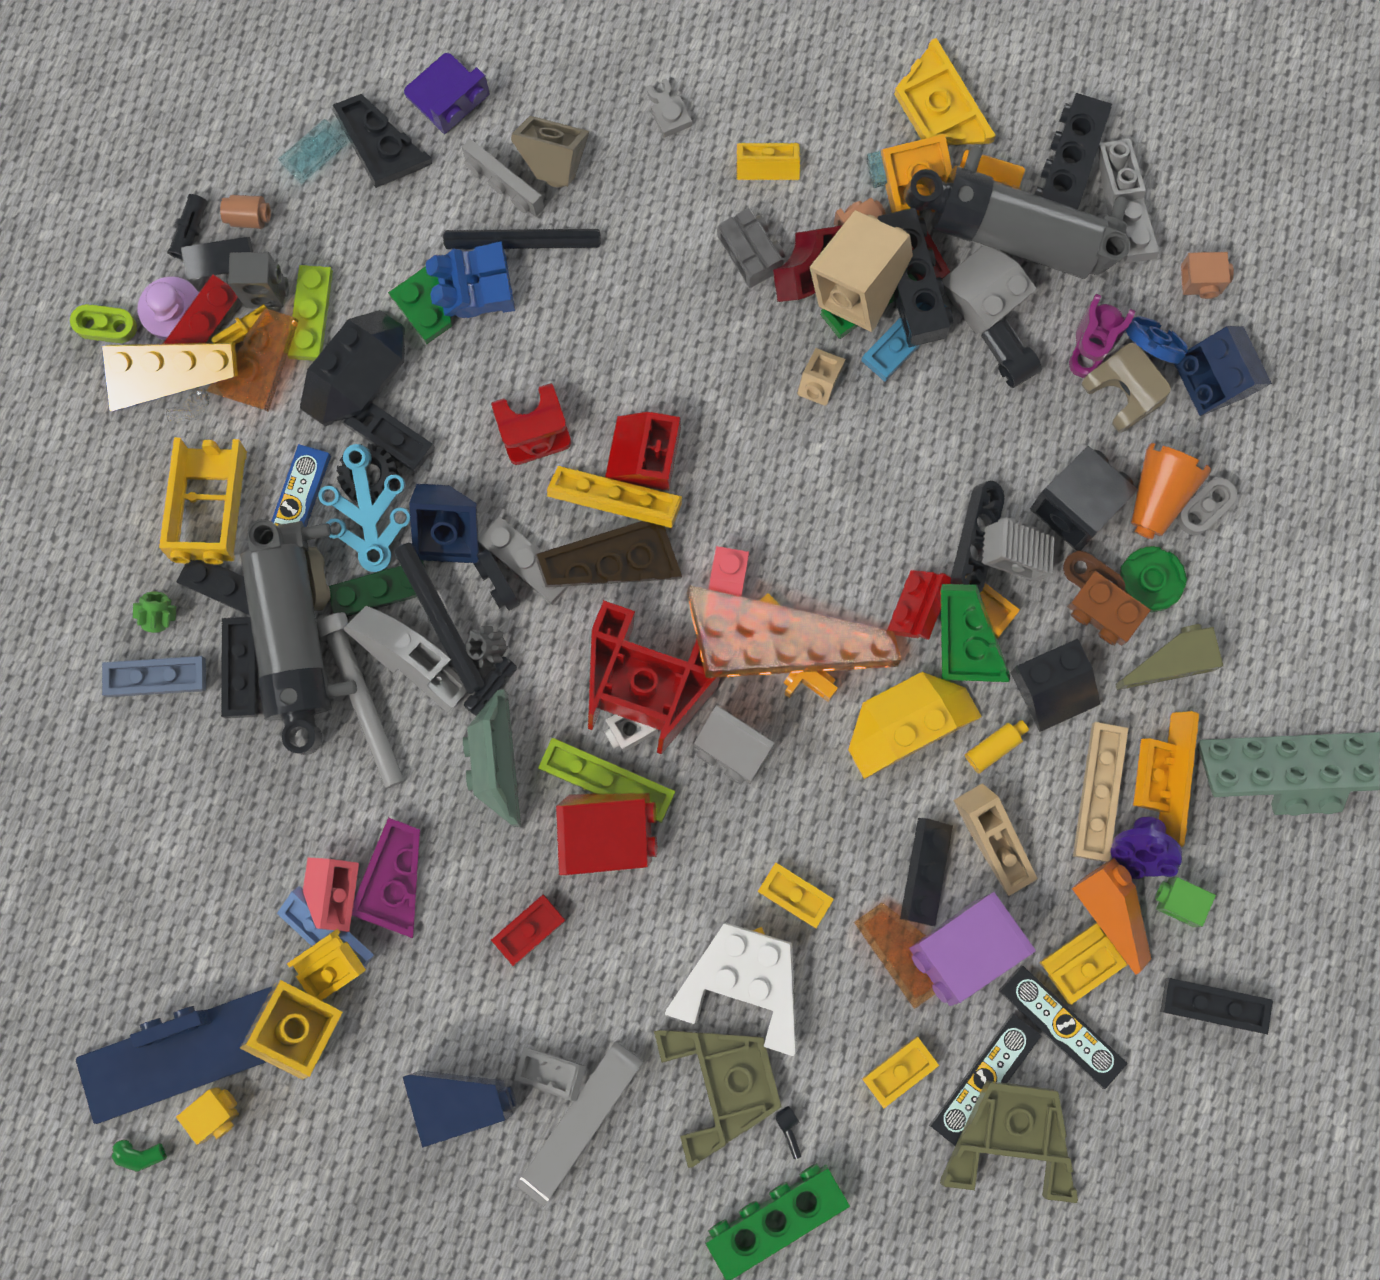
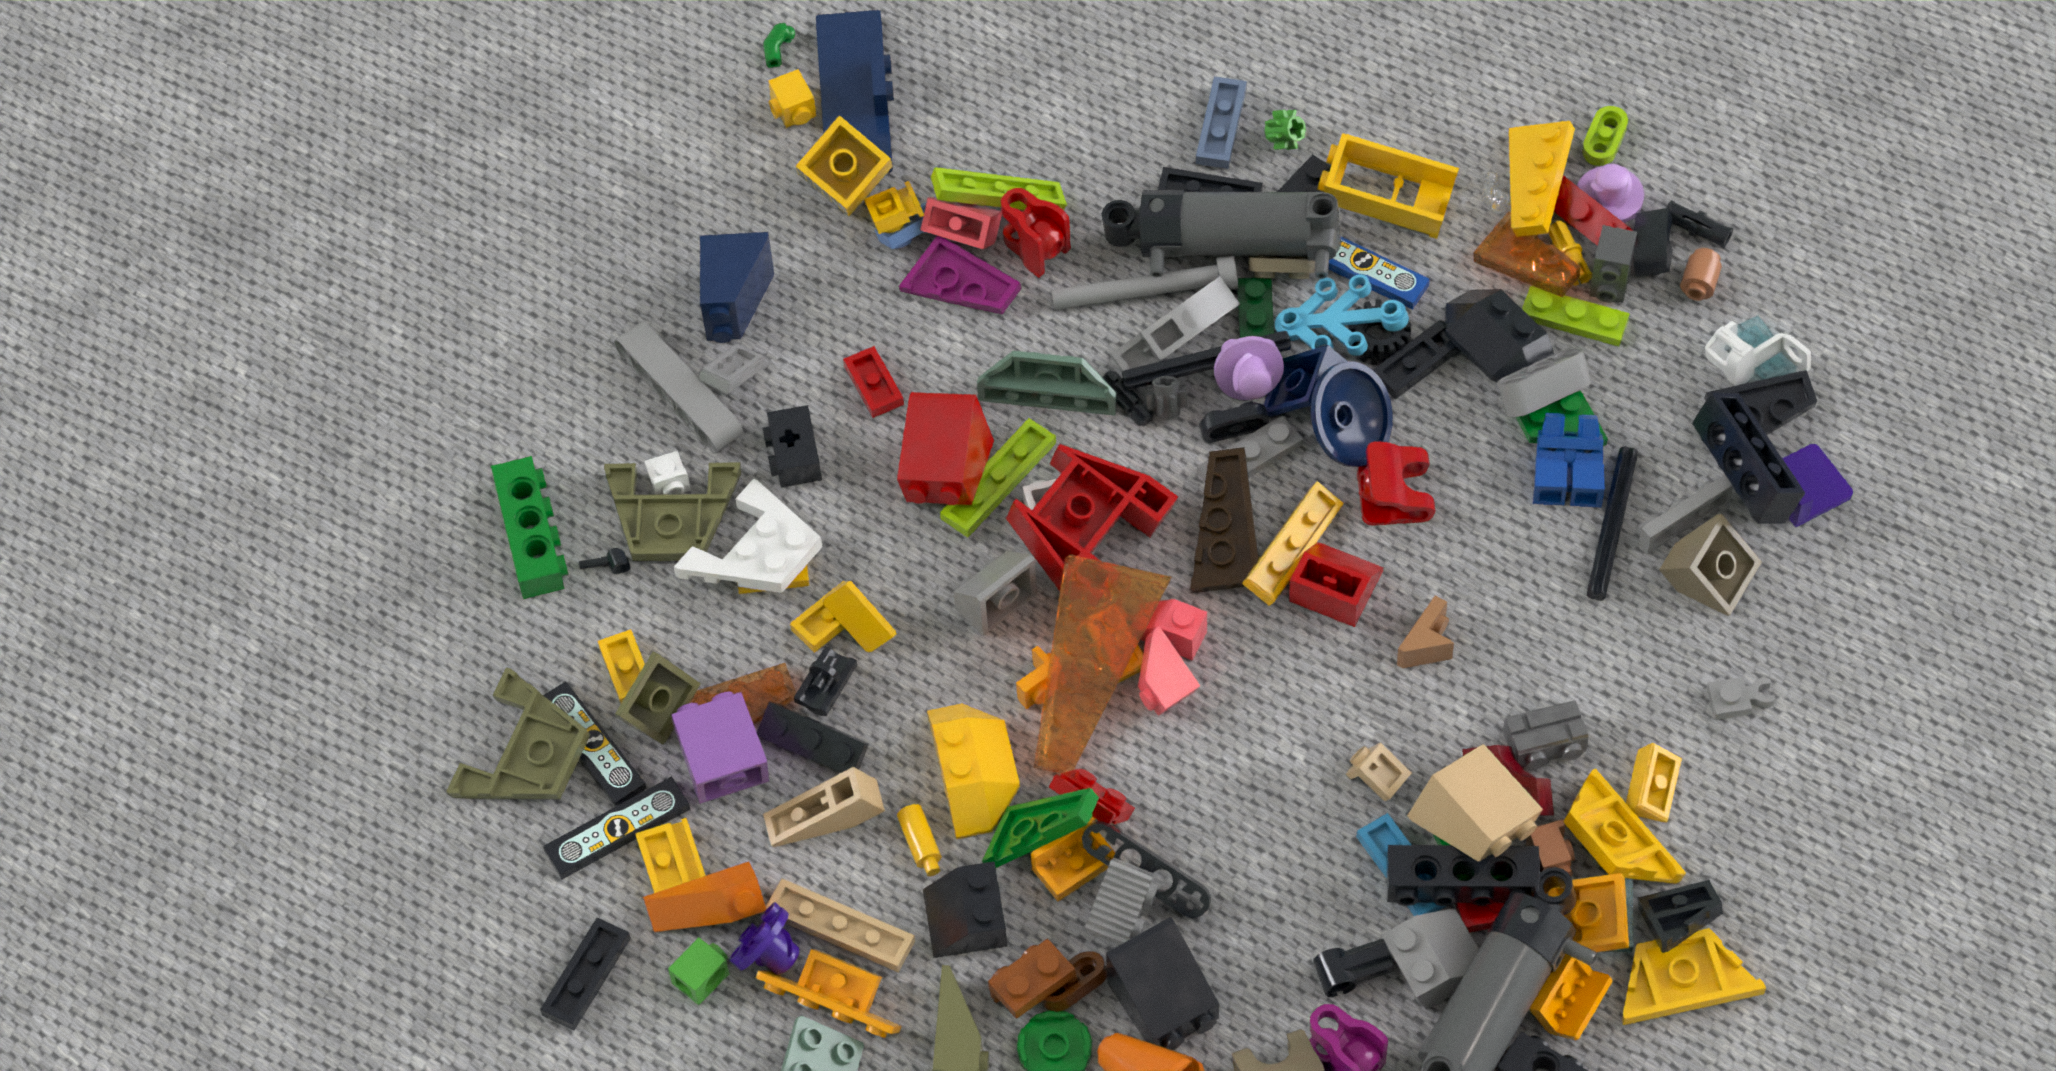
camera: 105 degrees right, 20 degrees down
(289, 866) = (988, 189): none -> lime plate
(330, 812) = (1041, 229): none -> red piece
(343, 161) = (1744, 358): none -> white piece
(397, 315) = (1544, 382): none -> light grey beam
(434, 122) = (1748, 458): none -> black brick
(445, 573) = (1248, 367): none -> lavender plate
(474, 471) = (1350, 412): none -> dark blue dish
(602, 984) = (797, 463): none -> black brick
(681, 1101) = (667, 474): none -> white bracket
(687, 367) = (1425, 640): none -> medium nougat slope
(783, 573) = (1163, 674): none -> coral slope
(796, 864) = (858, 616): none -> yellow slope
(829, 174) = (1617, 835): none -> yellow wing
(869, 875) = (825, 681): none -> black hips
(889, 112) = (1679, 912): none -> black wing
(934, 1031) = (655, 696): none -> olive slope

